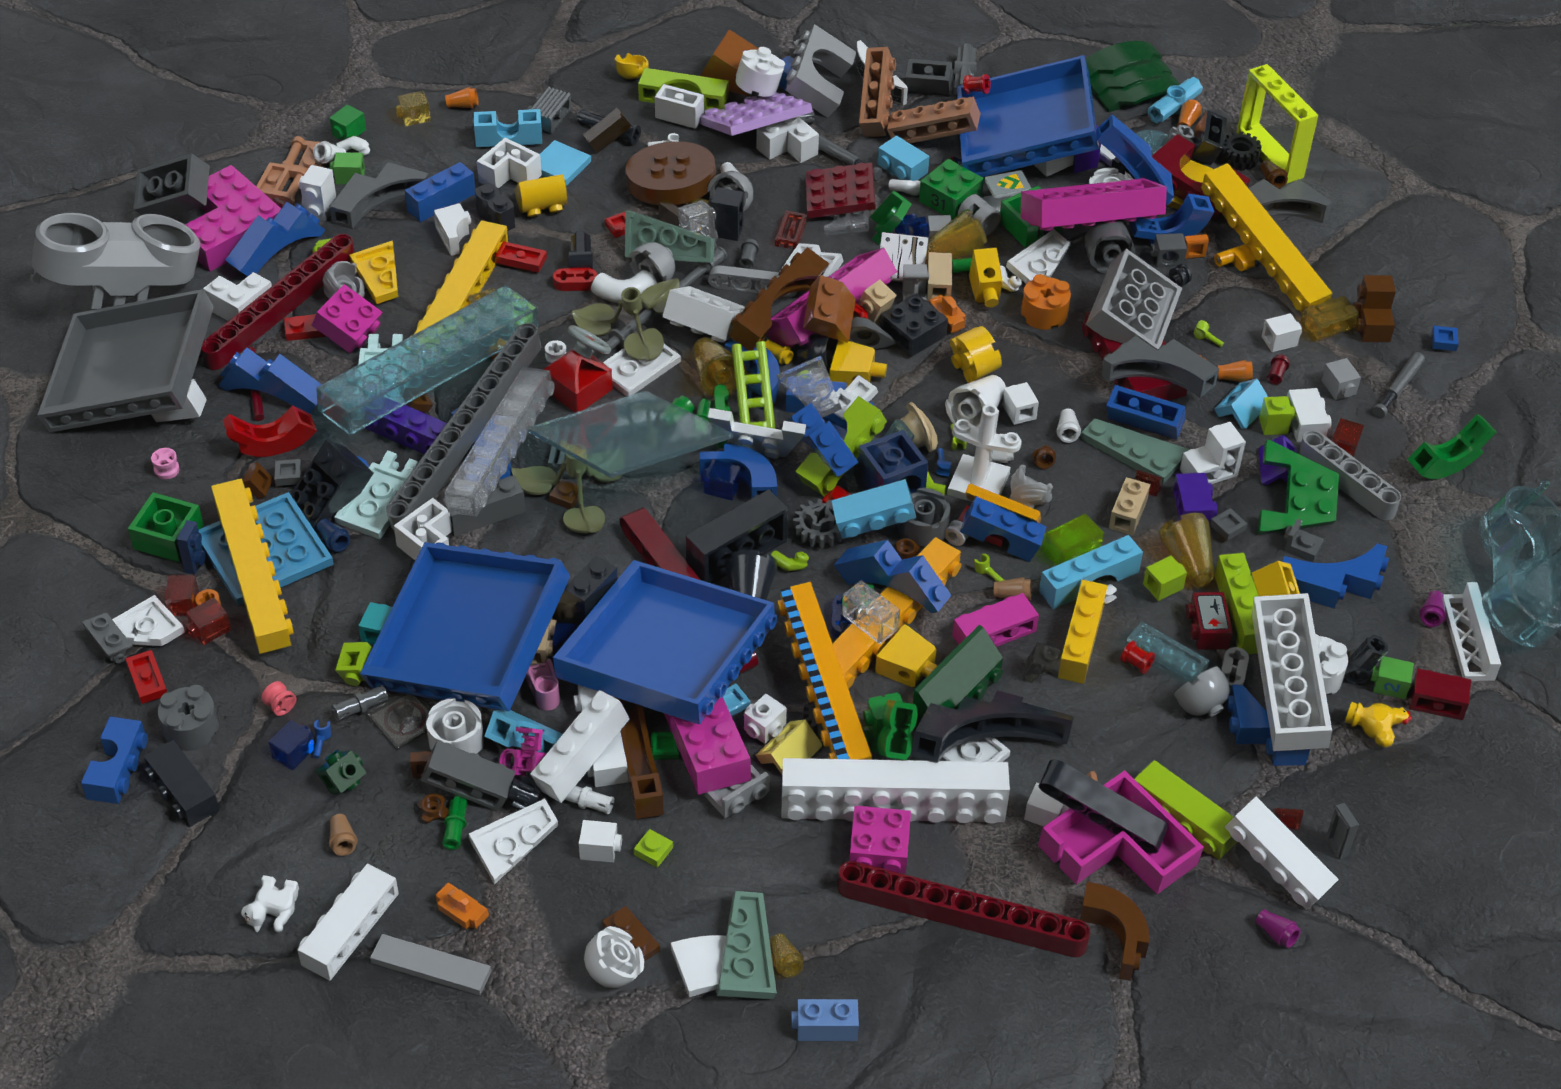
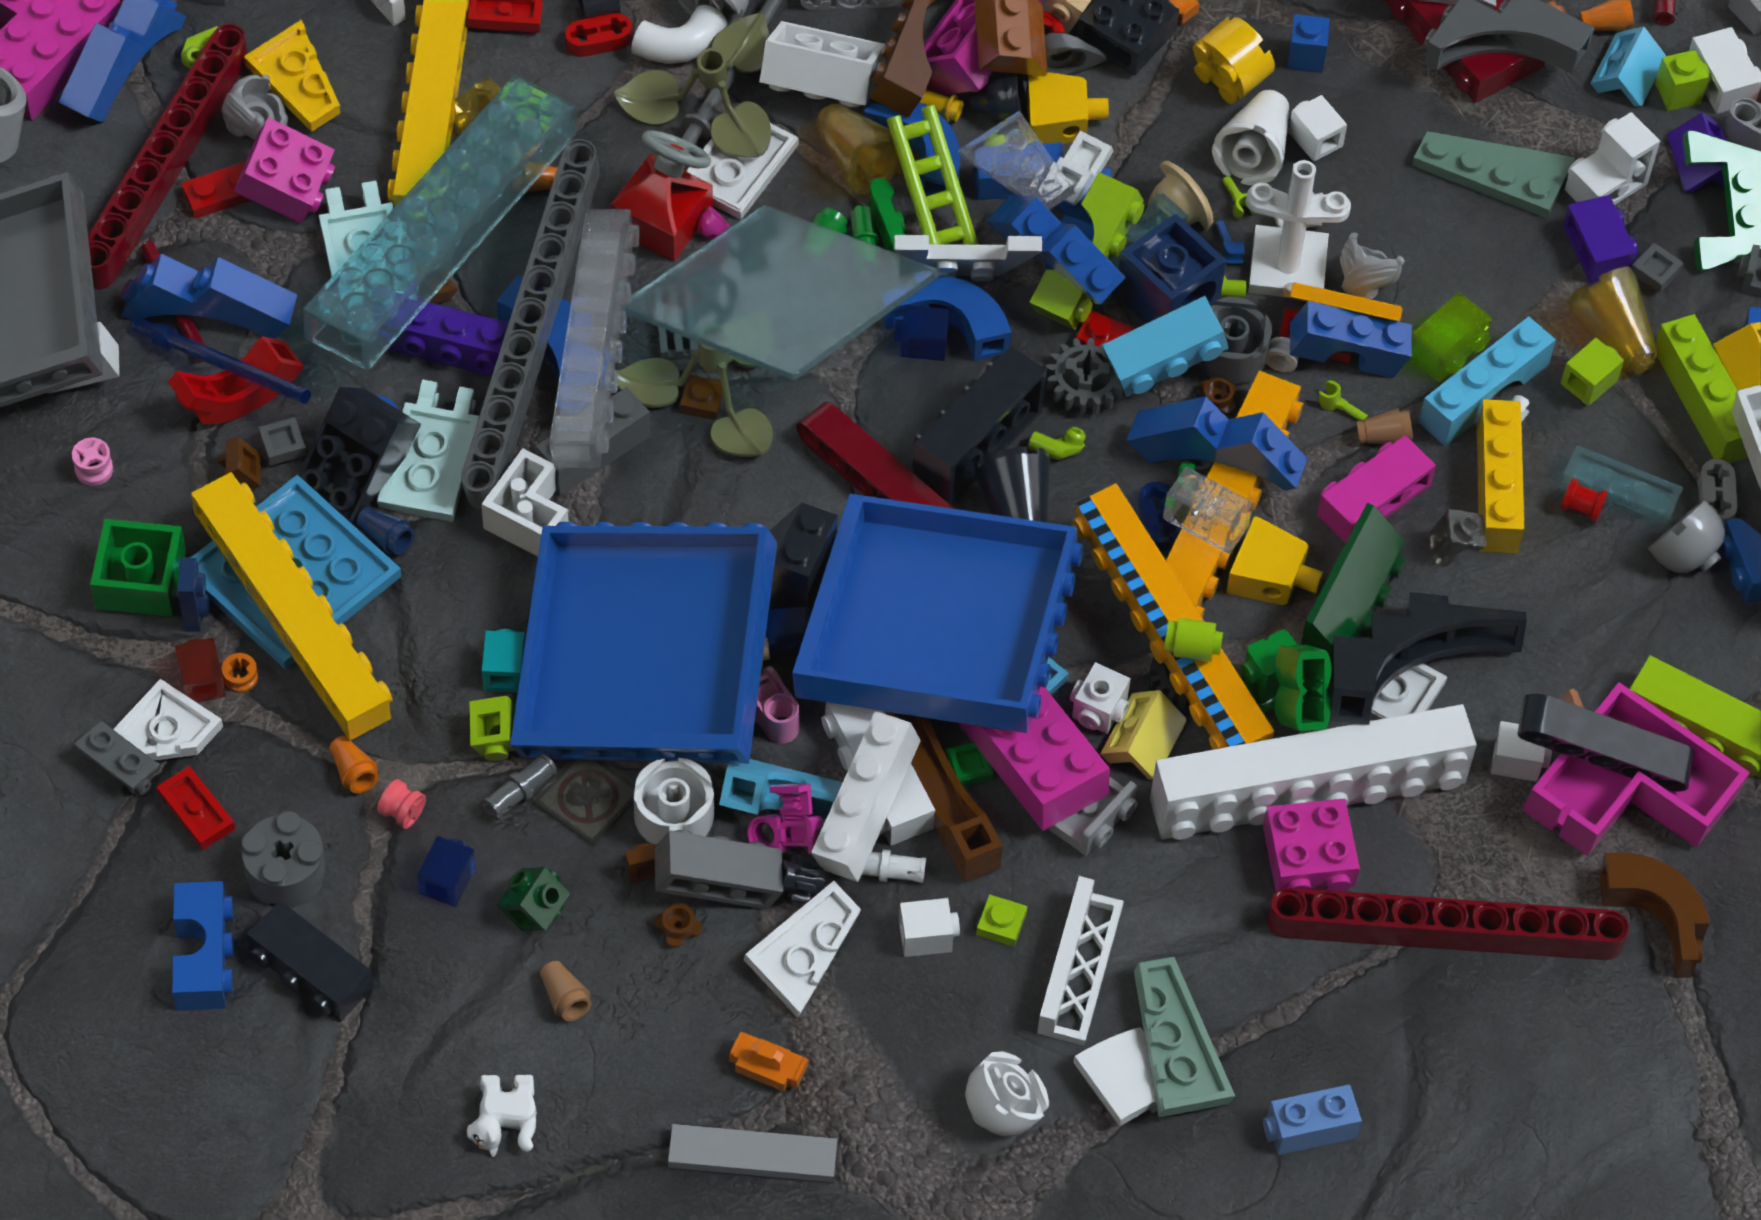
camera: 15 degrees left, 10 degrees up
(207, 621) = (254, 704): clear red brick -> none
(232, 298) = (101, 166): white brick -> none
(241, 402) = (168, 338): none -> clear blue bar
(257, 670) = (354, 767): none -> orange cone
(321, 734) = (480, 846): blue hand -> none
(347, 921) = (622, 1117): white brick -> none
(455, 823) = (716, 940): green axle -> none
(554, 346) = (615, 157): white bush -> none
(607, 394) = (712, 224): none -> dark pink hinge
(629, 923) = (999, 1036): reddish brown plate -> none
(687, 879) = (1068, 952): none -> white fence
(786, 957) = (1231, 1040): clear yellow cone -> none
(830, 685) = (1193, 639): none -> lime brick
(1029, 354) = (1308, 43): none -> blue brick
(1046, 461) = (1372, 208): reddish brown plate -> none
(1068, 426) = (1393, 152): white cone -> none
(1129, 506) = (1513, 265): tan brick -> none
(1146, 412) = (1500, 110): blue brick -> none
(1154, 481) = (1527, 223): clear red slope -> none
(1209, 620) = (1668, 425): brick -> none

